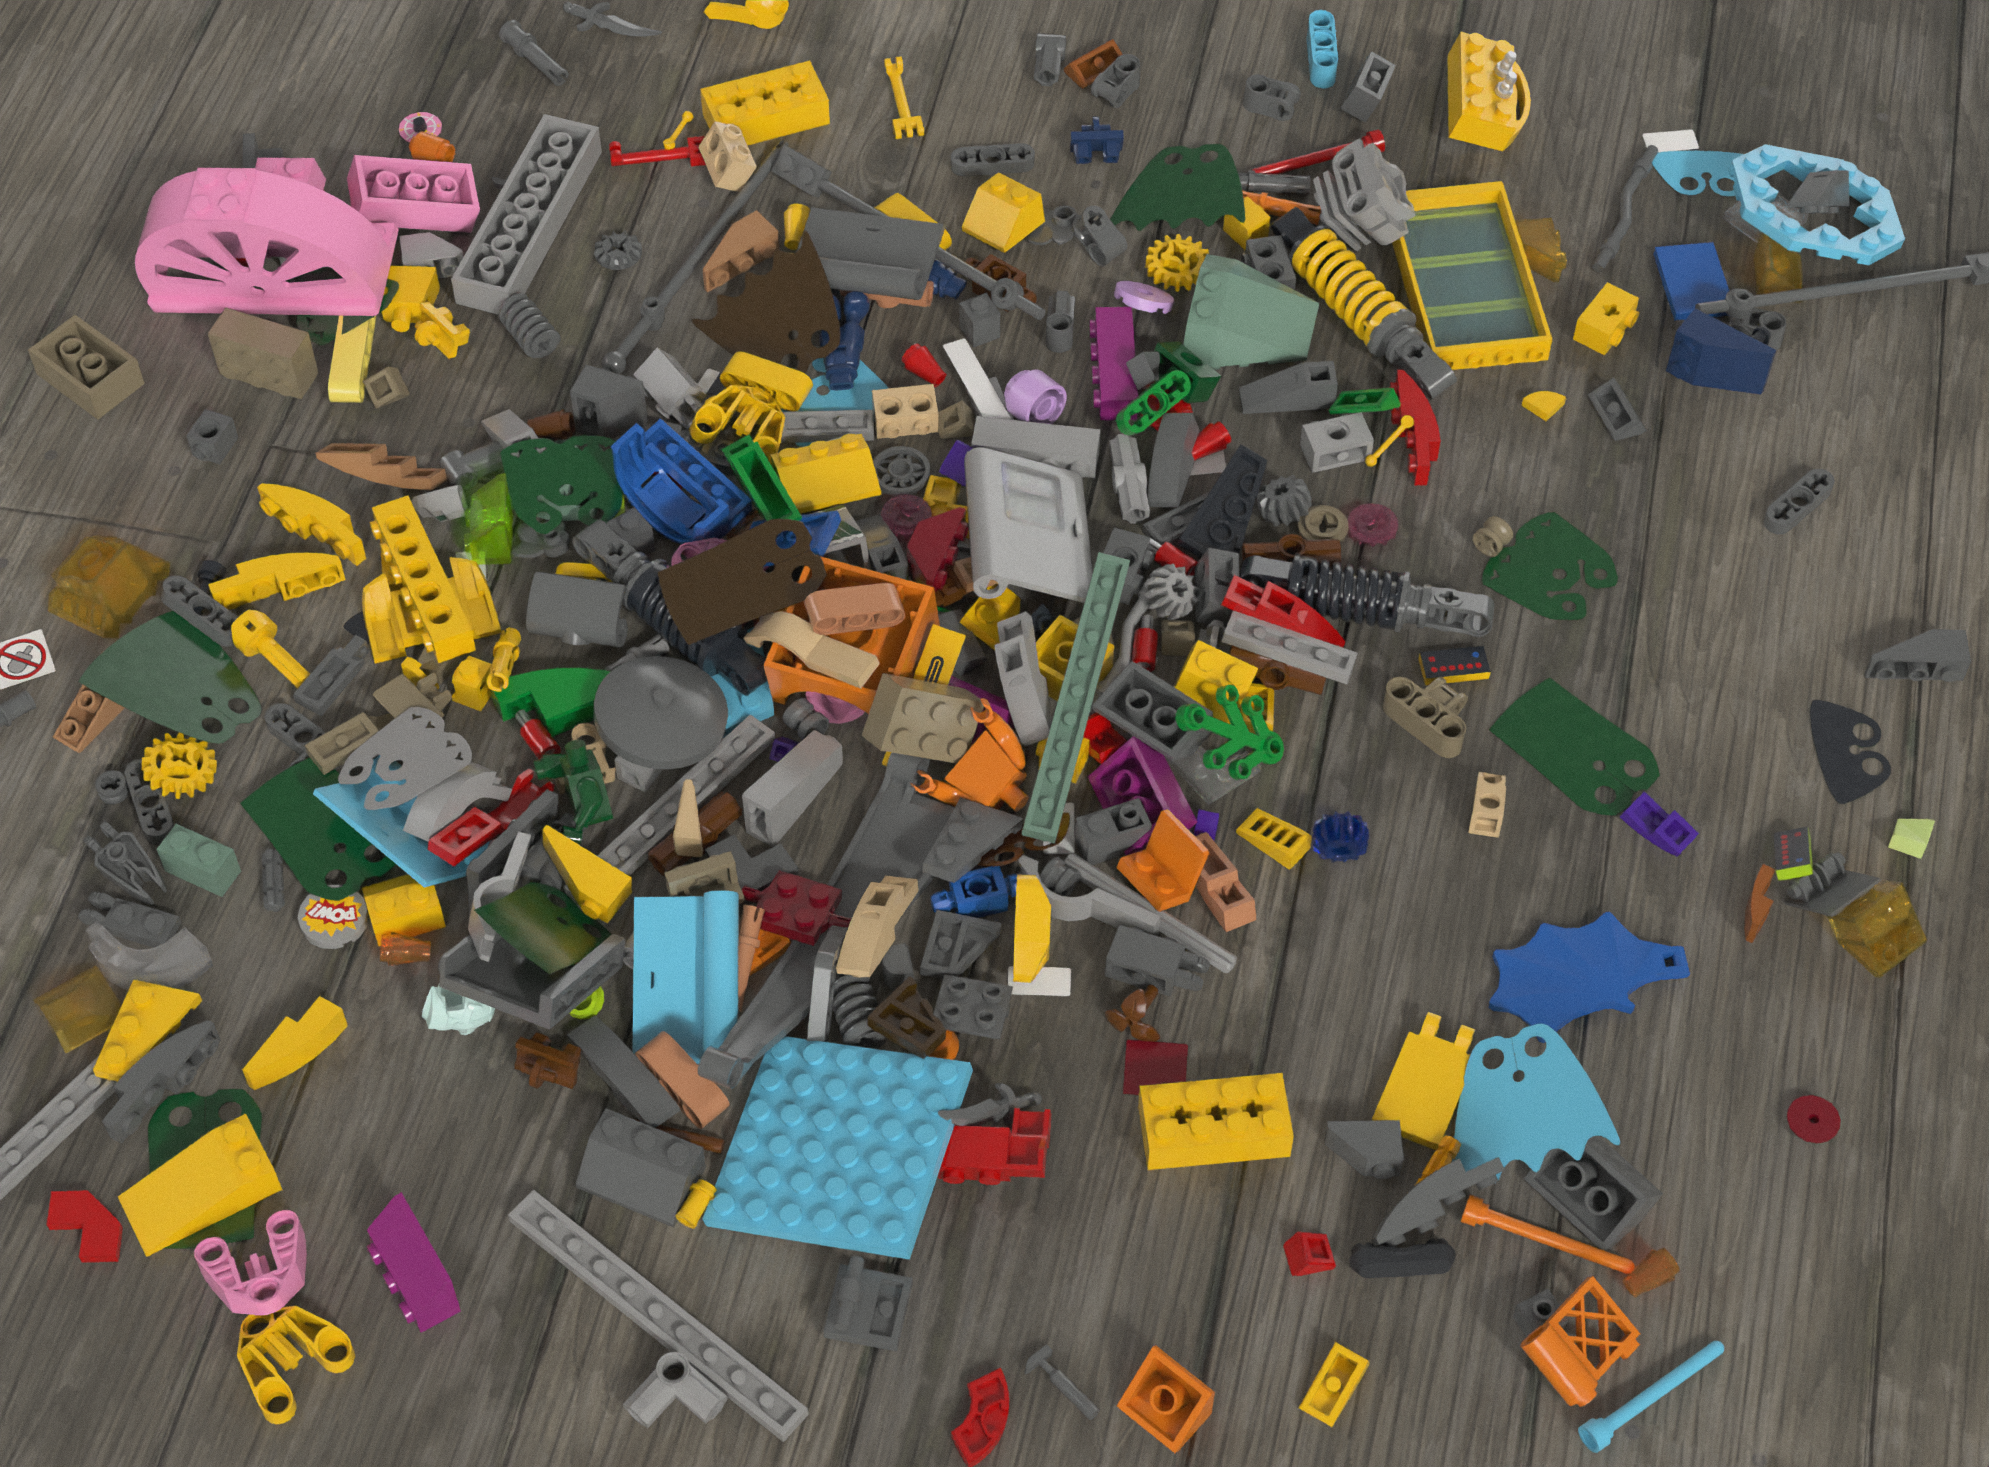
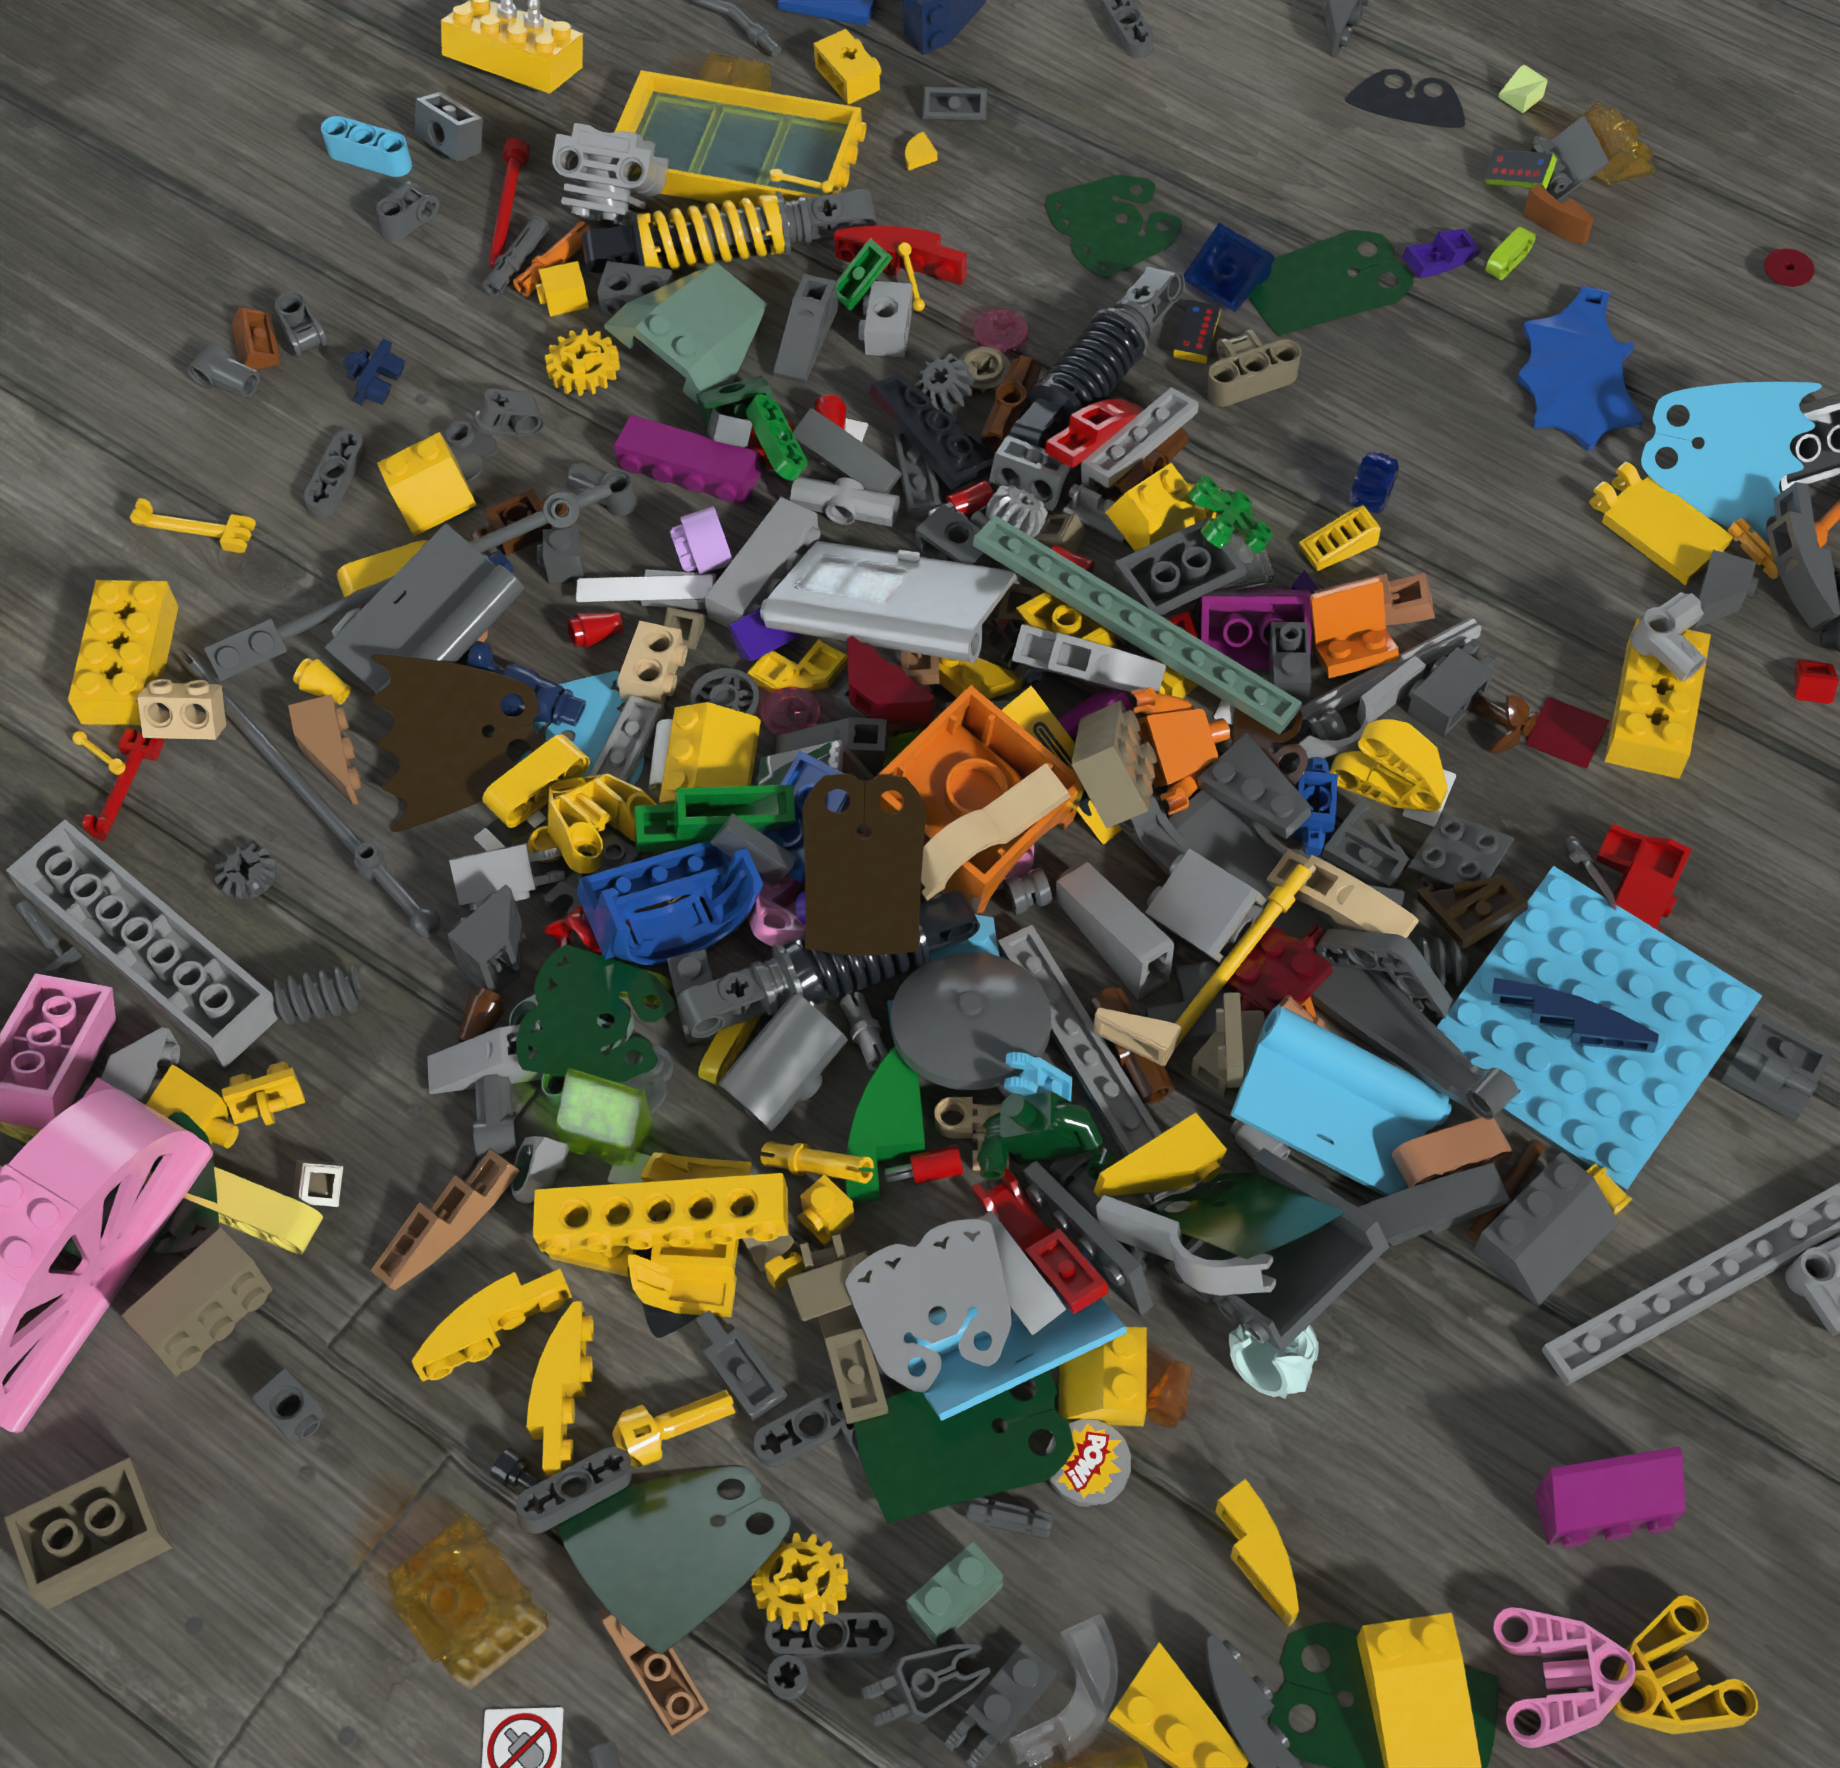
camera: 65 degrees left, 5 degrees up
(546, 1063) = (1383, 1288): reddish brown hips -> none
(620, 774) = (1036, 1076): none -> medium azure hinge
(738, 508) = (769, 858): none -> dark grey slope
(782, 747) = (1048, 927): dark purple piece -> none
(826, 1121) = (1589, 1021): none -> dark blue slope
(830, 840) = (1205, 905): none -> light grey slope
(849, 876) = (1279, 901): none -> yellow bar
(854, 608) = (969, 764): nougat beam -> none
(1143, 296) = (618, 401): lavender tile -> none
(1169, 195) = (499, 322): dark green piece -> none
(1245, 1092) = (1661, 636): none -> light grey piece
(1438, 309) = (777, 175): none -> yellow hinge
(1488, 805) = (1373, 361): tan leg -> none
(1492, 536) = (1064, 244): dark tan wheel -> none
(1534, 662) = (1229, 267): none -> clear blue slope
(1687, 877) = (1510, 253): none -> lime beam

